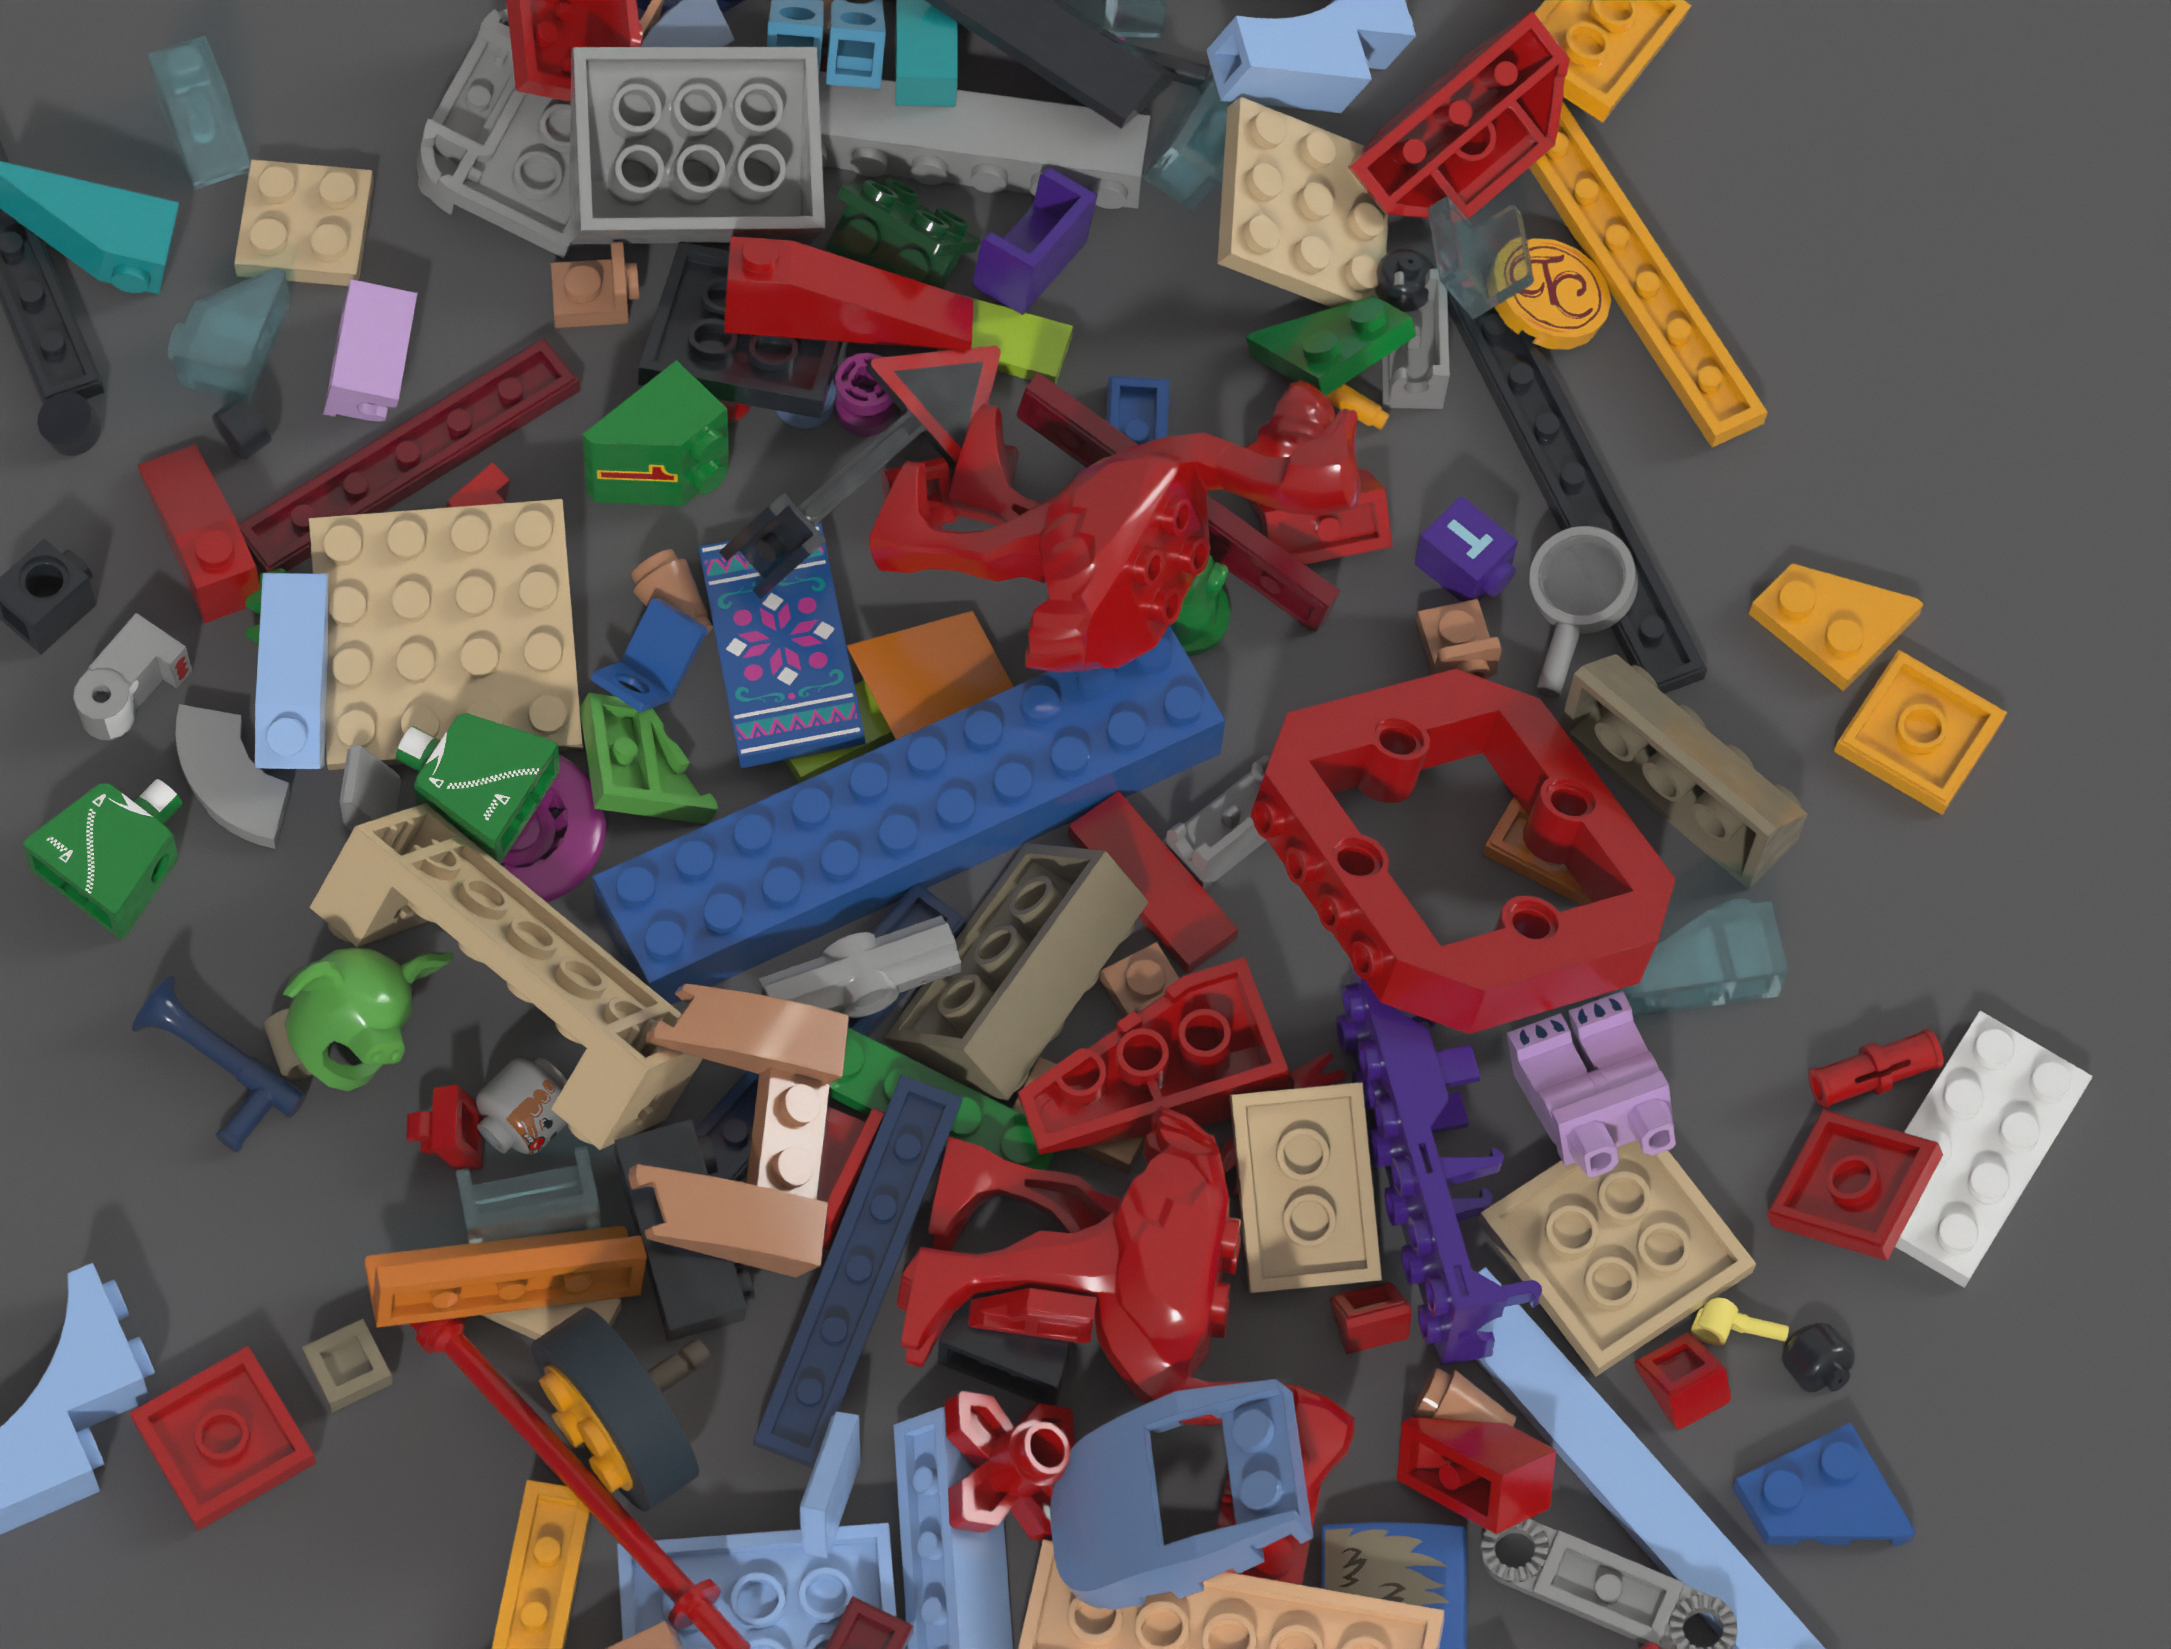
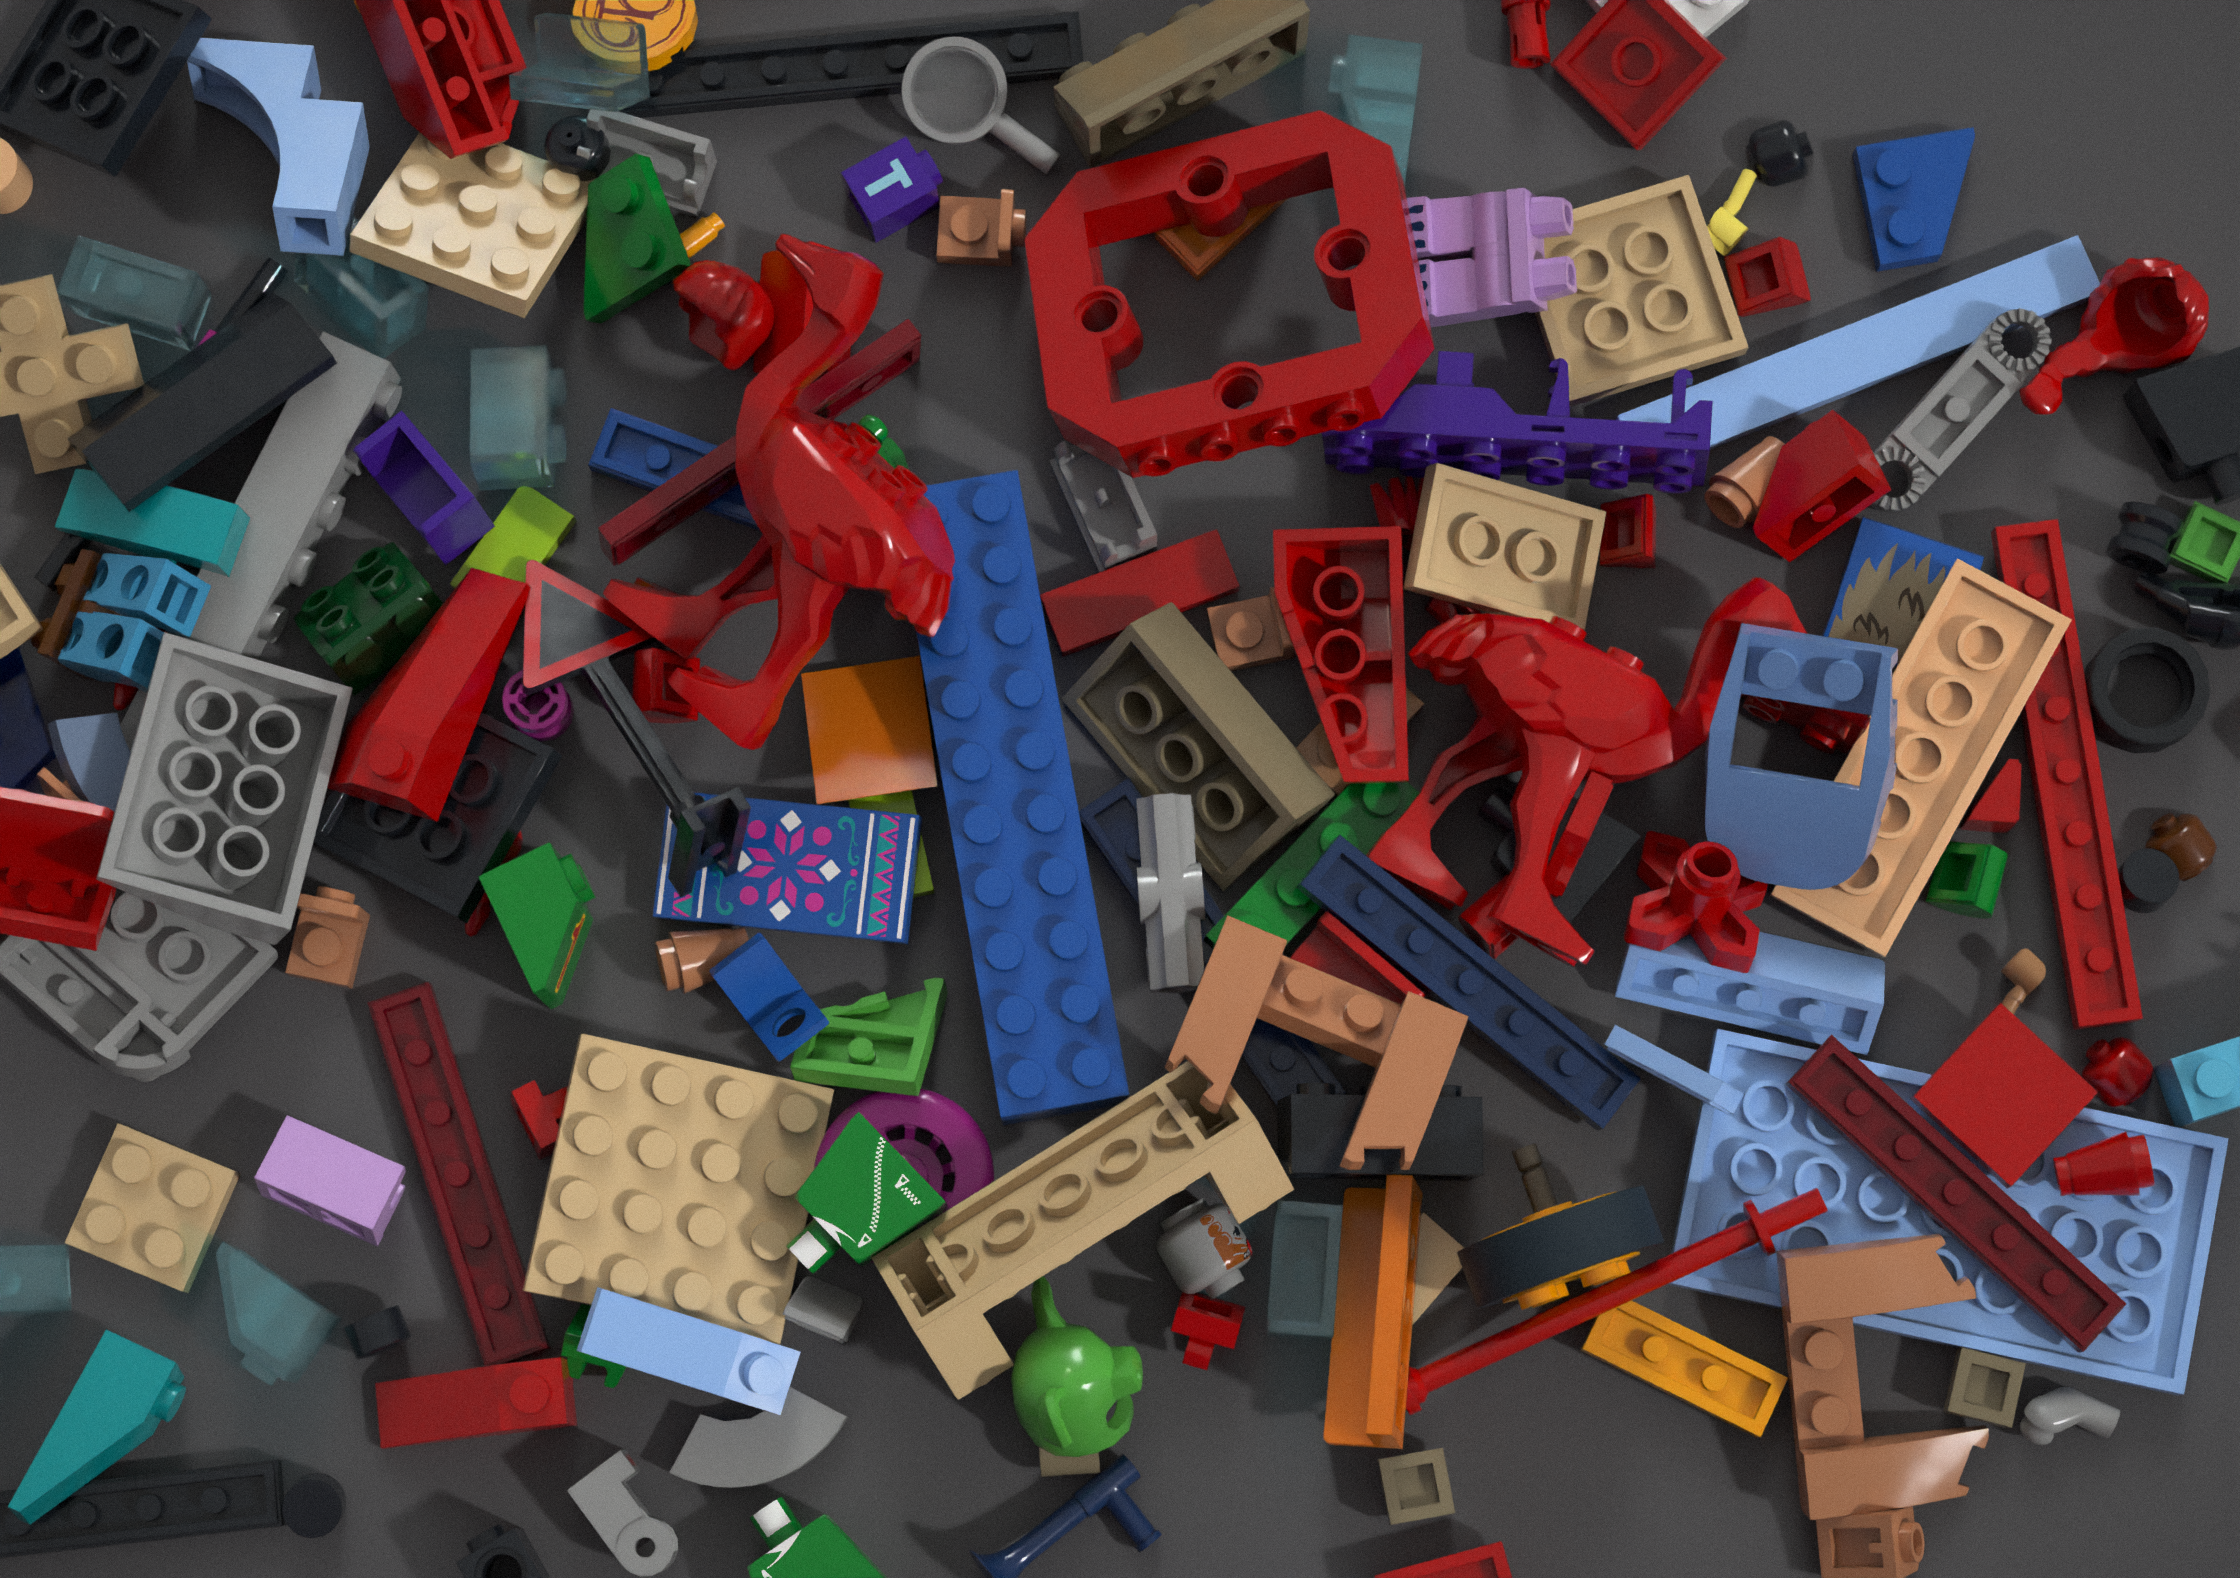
camera: 65 degrees left, 15 degrees up
(1127, 296) = (514, 417): none -> clear light blue brick

